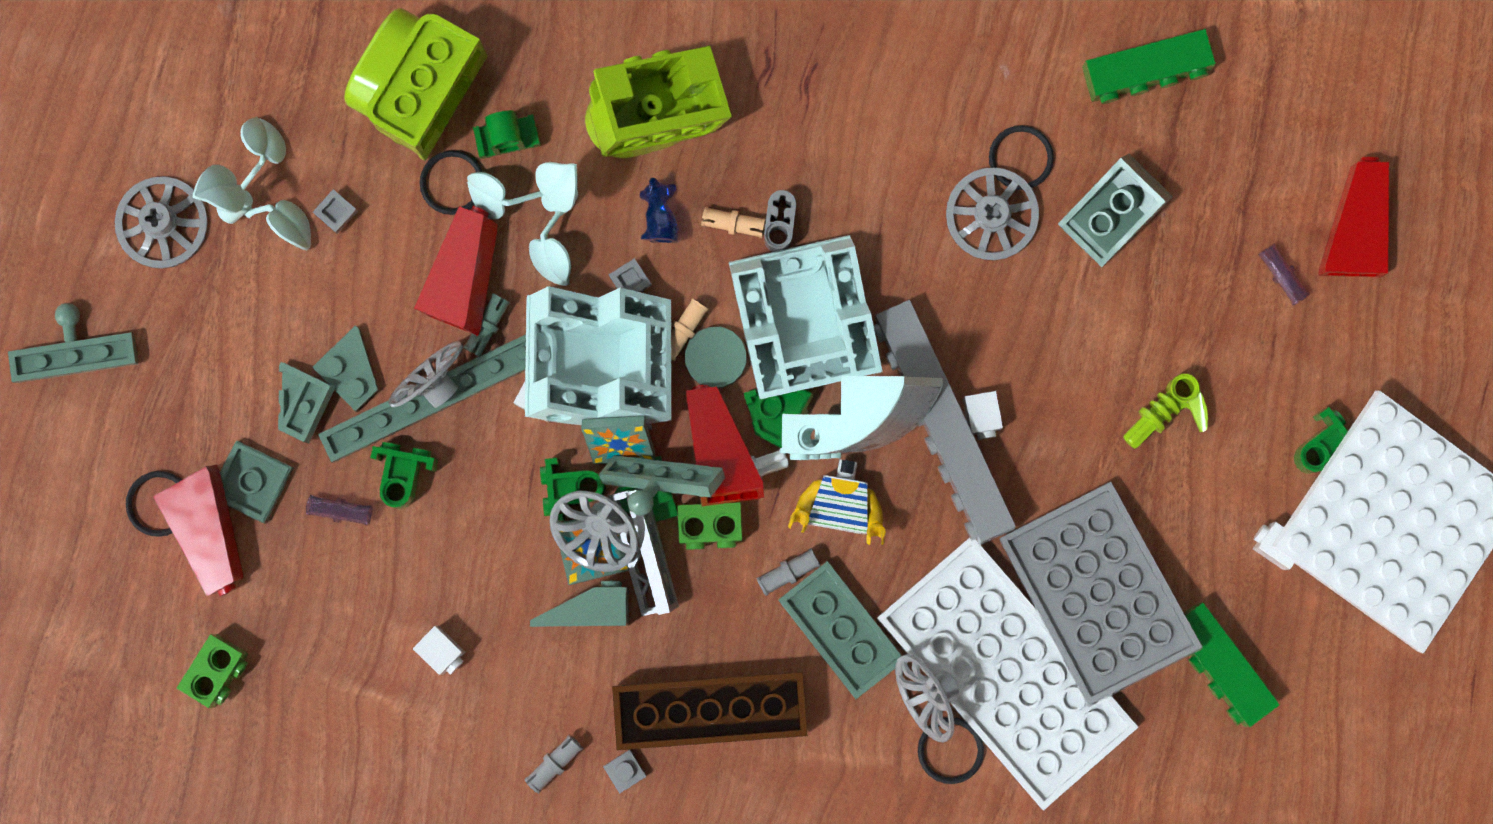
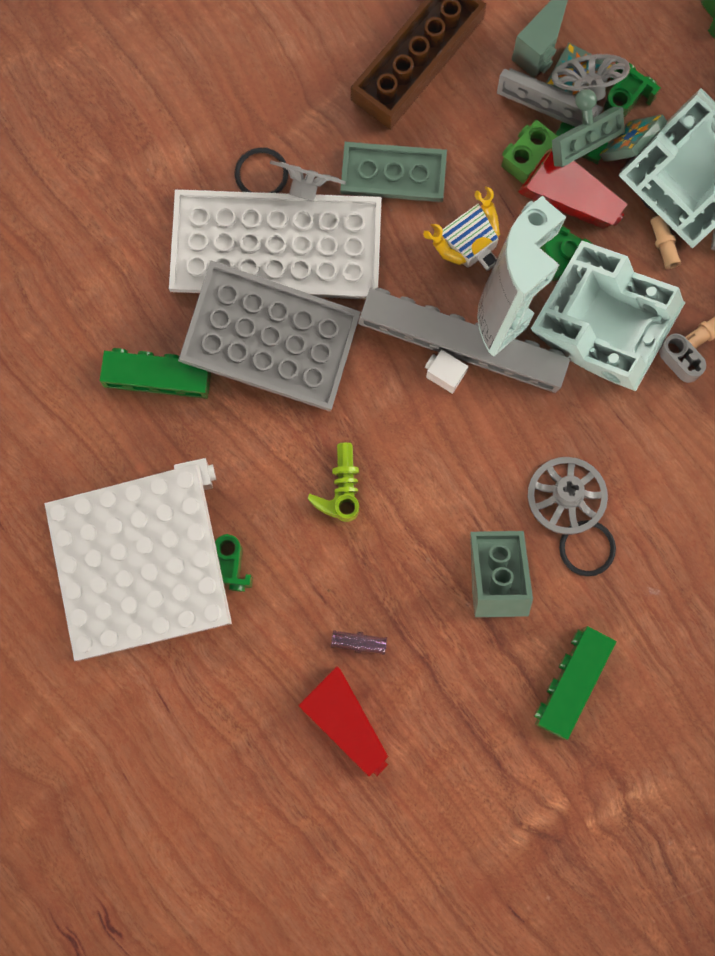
camera: 130 degrees right, 5 degrees down
(715, 357) = (632, 241): sand green tile -> none
(788, 572) = (457, 172): light grey pin -> none

